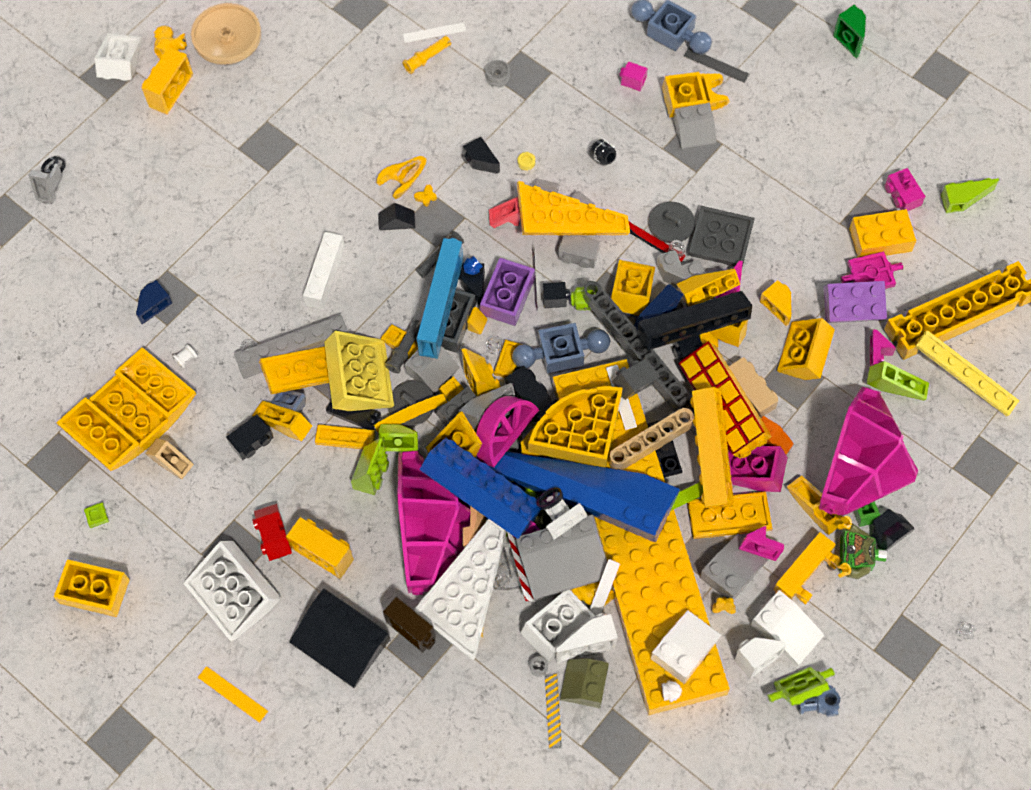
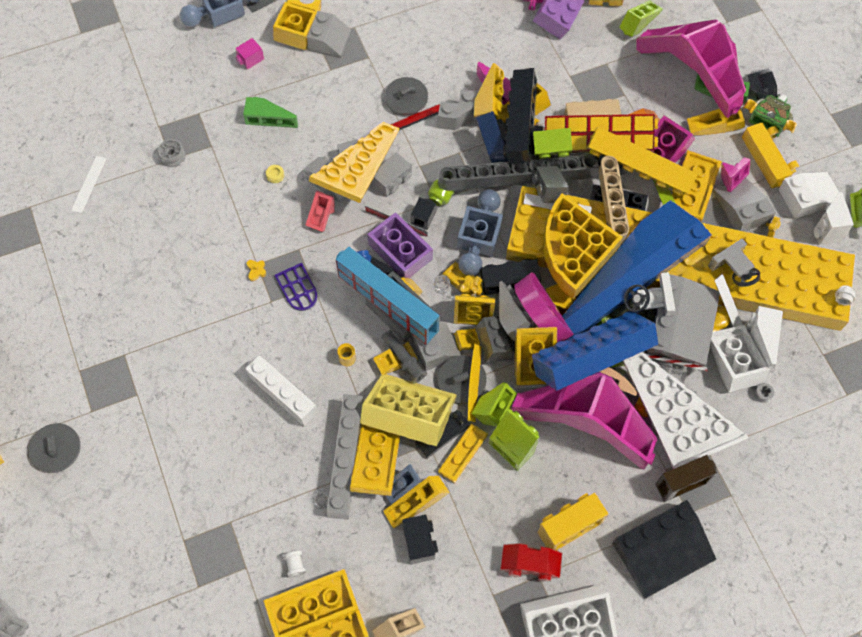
camera: 65 degrees left, 0 degrees up
(152, 301) = (213, 568): dark blue slope -> none
(194, 140) = (54, 447): none -> dark grey shield
(385, 308) = (346, 361): none -> yellow beam
(396, 218) = (263, 305): black slope -> none
(405, 173) = (223, 274): yellow animal -> none
(420, 58) = (110, 205): yellow pin -> none
(431, 262) = (323, 277): dark grey pin -> none
(433, 235) = (299, 280): none -> dark purple window
(480, 156) = (248, 205): black slope -> none
(502, 367) = (471, 284): none -> yellow piece
(553, 711) = (807, 402): sticker -> none
(578, 116) = (265, 113): none -> bright green slope
(584, 682) = (797, 361): olive slope -> none
(603, 152) = (308, 110): black head -> none
(632, 286) = (451, 149): yellow slope -> none
(644, 576) = (738, 263): none -> light grey piece
(677, 243) = (433, 99): clear axle -> none
(680, 360) = (553, 142): none -> lime brick
(685, 646) = (812, 266): white slope -> none
(721, 236) = (442, 68): dark grey plate -> none
(778, 301) = (527, 56): yellow slope -> none
(806, 349) = (578, 61): yellow slope -> none
(879, 347) = (604, 15): dark pink slope -> none

